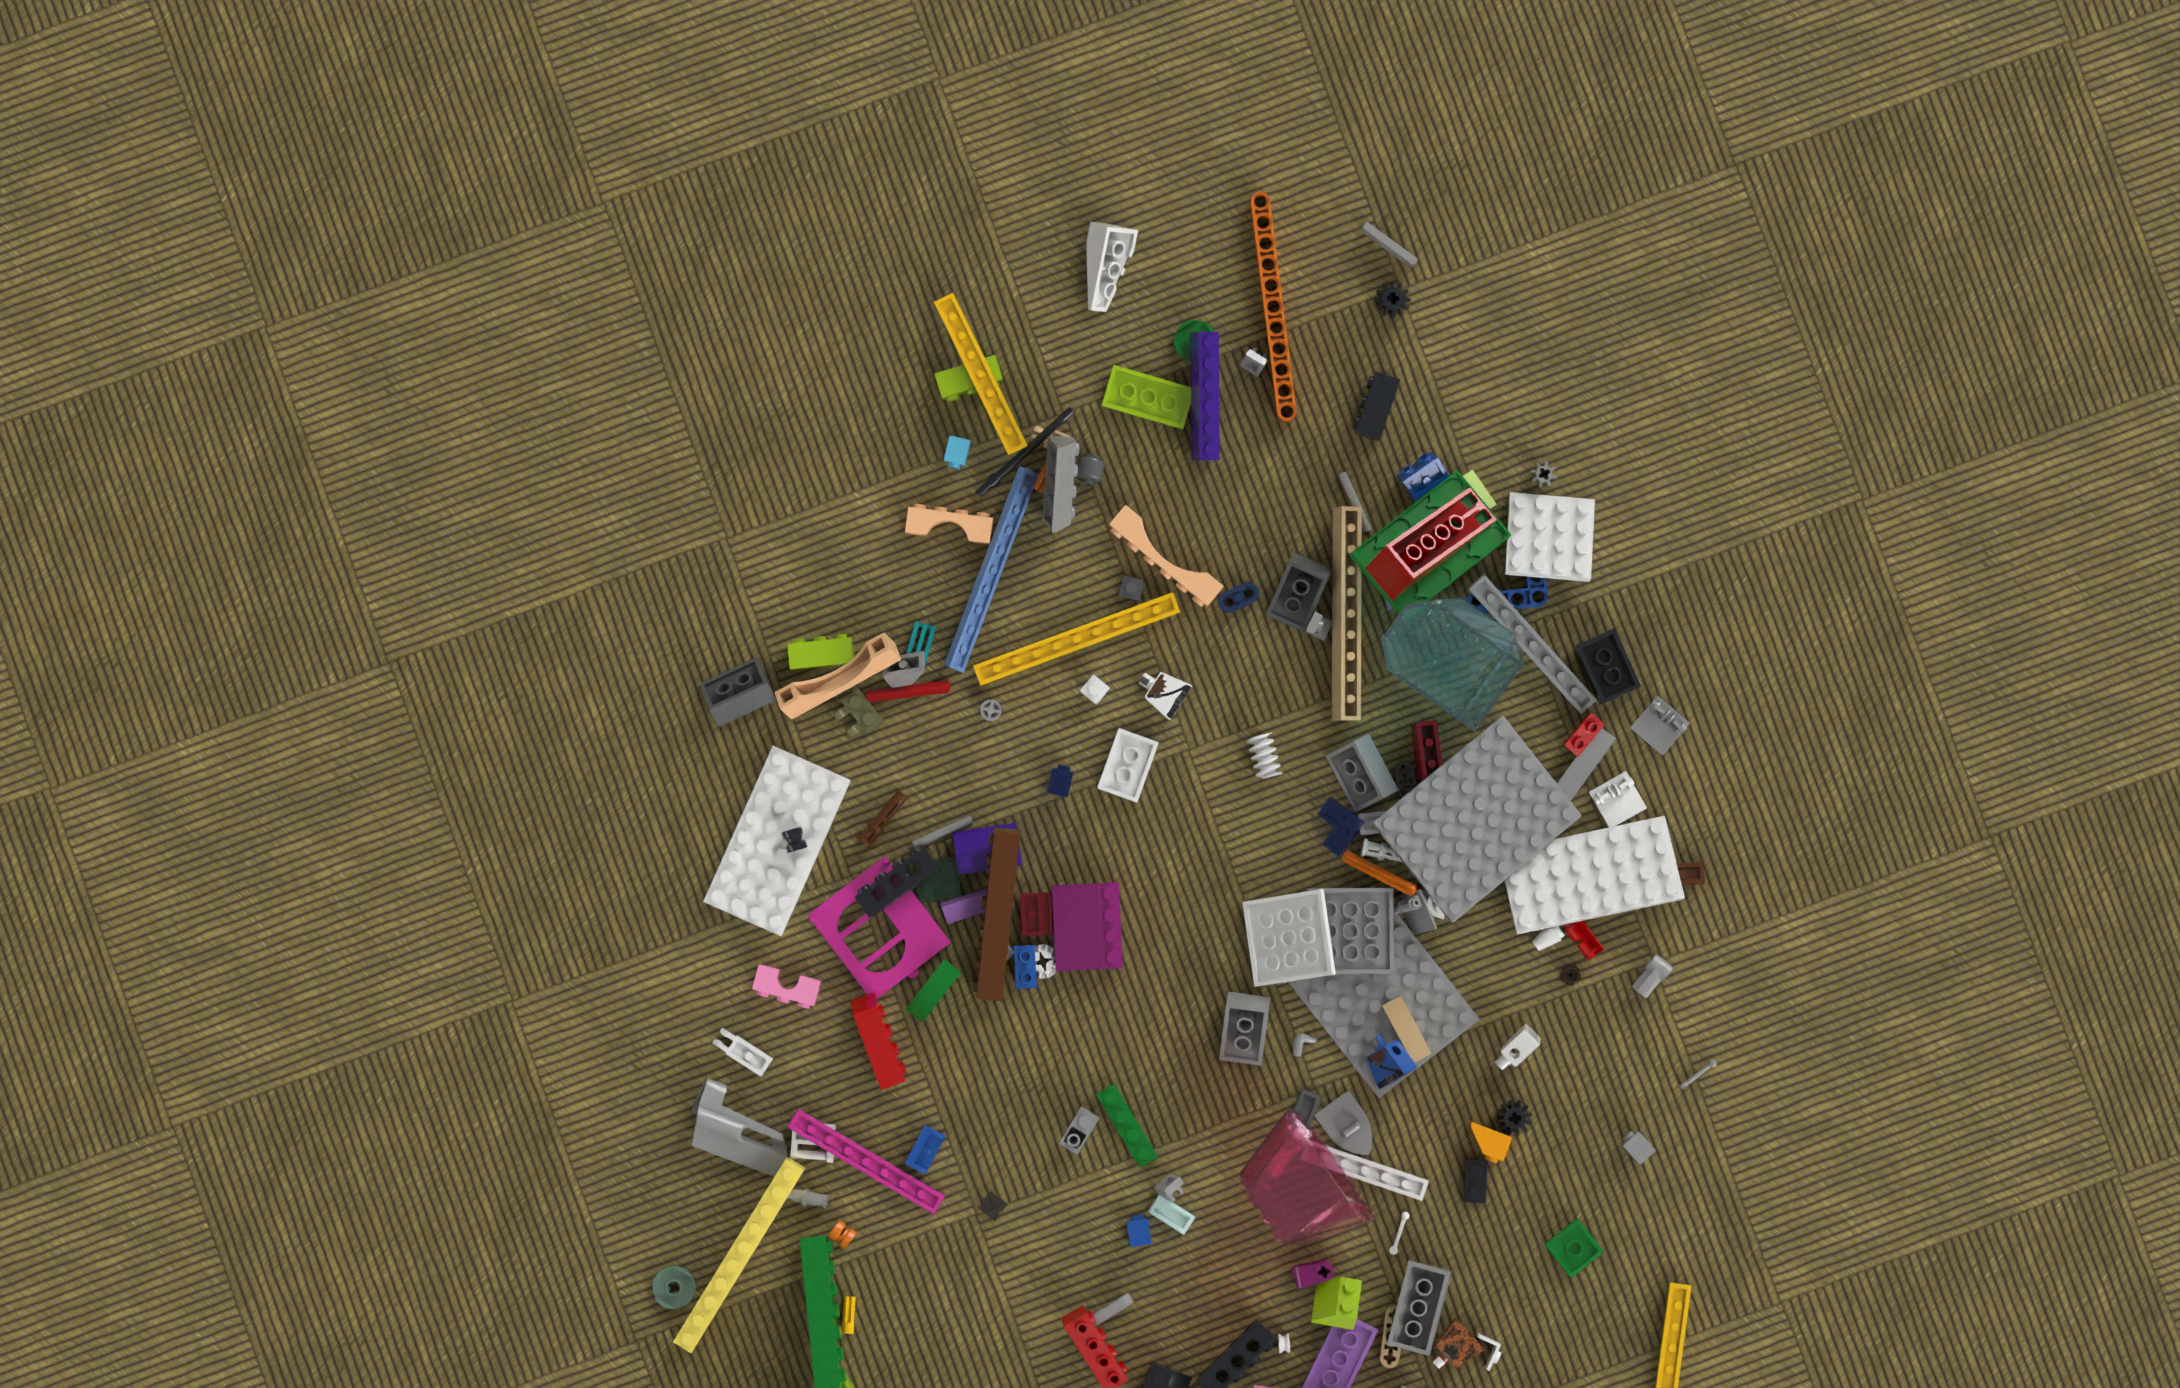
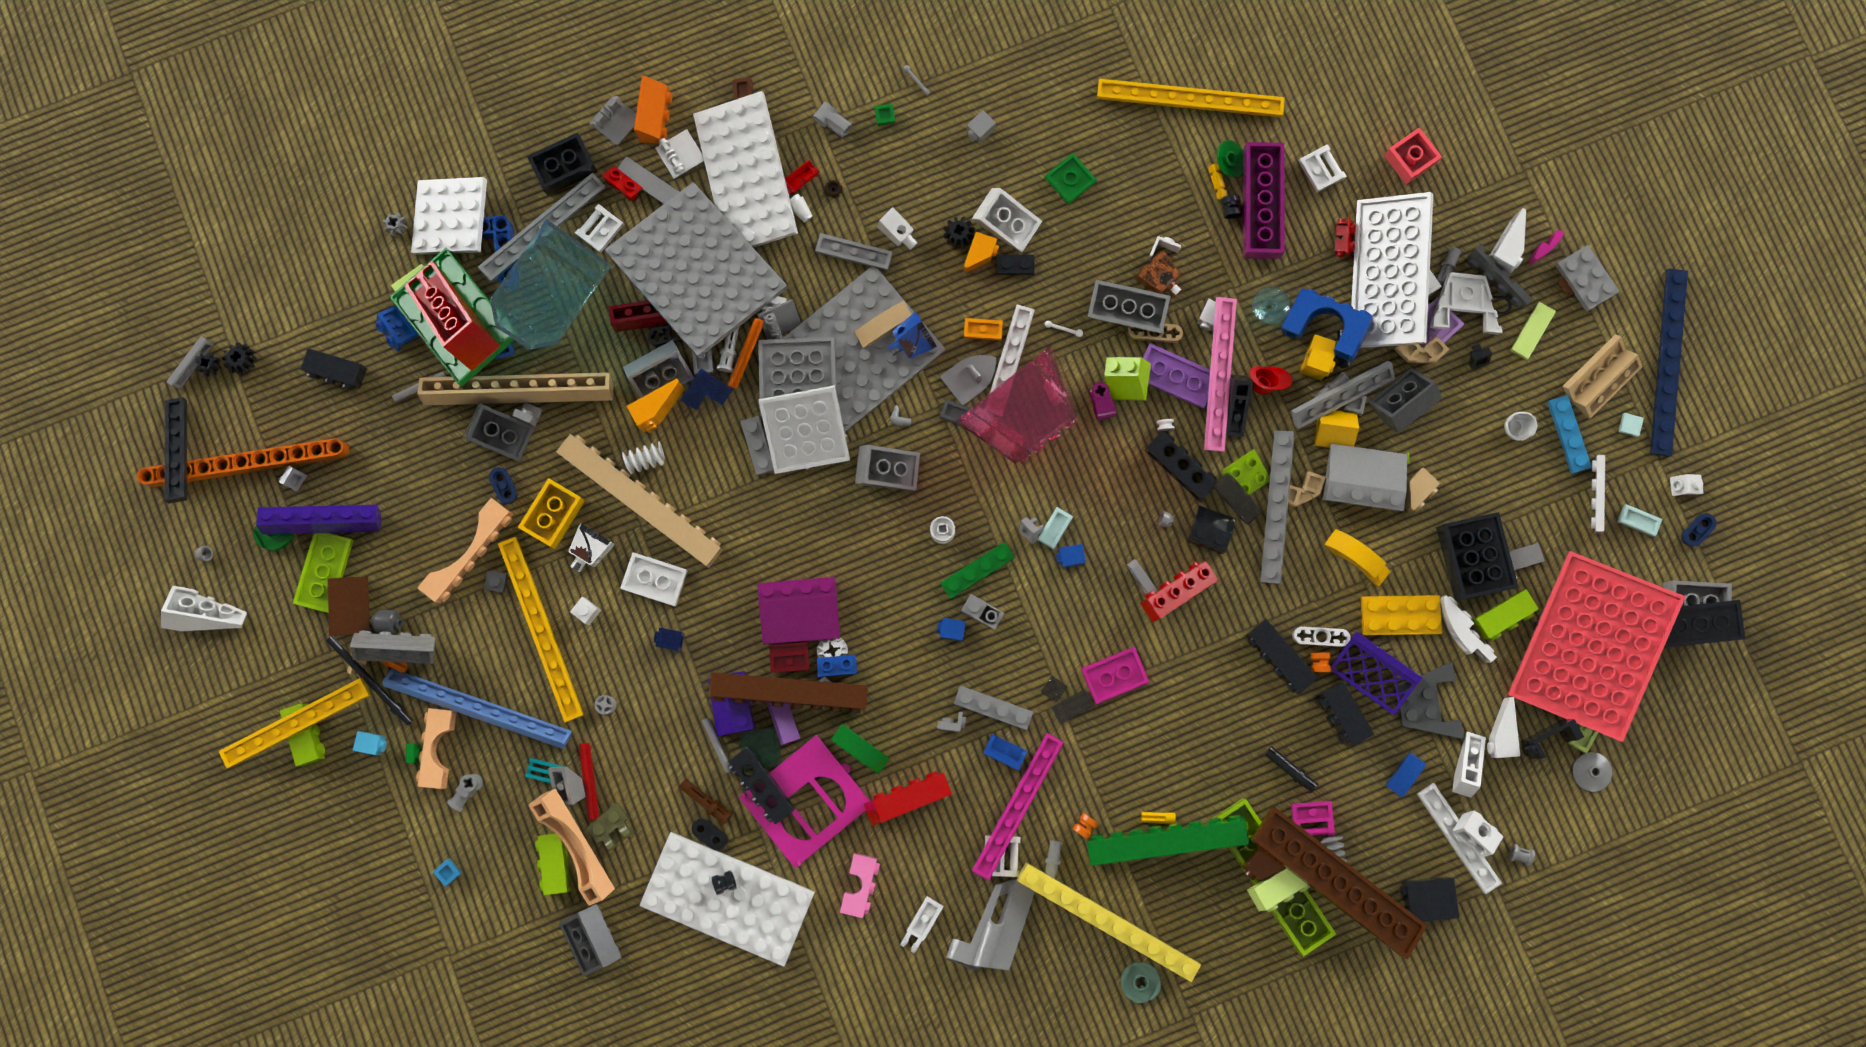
camera: 85 degrees left, 5 degrees down
(815, 537) = (447, 872): none -> dark azure plate
(845, 821) = (709, 833): none -> black plate
(900, 556) = (465, 791): none -> light grey connector
(944, 499) = (412, 752): none -> green plate
(957, 1088) = (949, 725): none -> light grey bracket
(972, 1225) = (1072, 706): none -> clear smoke tile
(974, 1138) = (993, 707): none -> light grey plate
(1005, 1274) = (1115, 675): none -> dark pink tile
(1061, 1094) = (951, 629): none -> blue brick
(1108, 427) = (348, 605): none -> reddish brown tile
(1172, 264) = (209, 553): none -> light grey hinge
(1172, 1088) = (942, 530): none -> white wheel
(1177, 1338) = (1165, 519): none -> light grey hinge
(1204, 653) = (551, 513): none -> yellow brick
(1216, 750) = (639, 500): none -> tan brick
(1275, 882) = (757, 445): none -> light grey plate
(1288, 235) = (175, 450): none -> black plate
(1318, 766) = (654, 407): none -> light orange slope
(1387, 259) = (208, 364): none -> black gear
(1400, 1141) = (983, 329): none -> light orange plate
(1495, 997) = (853, 252): none -> light grey plate
(1526, 711) = (603, 232): none -> white plate
(1527, 1173) = (1006, 219): none -> white slope
(1656, 1036) = (884, 114): none -> green plate
(1665, 771) = (652, 111): none -> orange slope

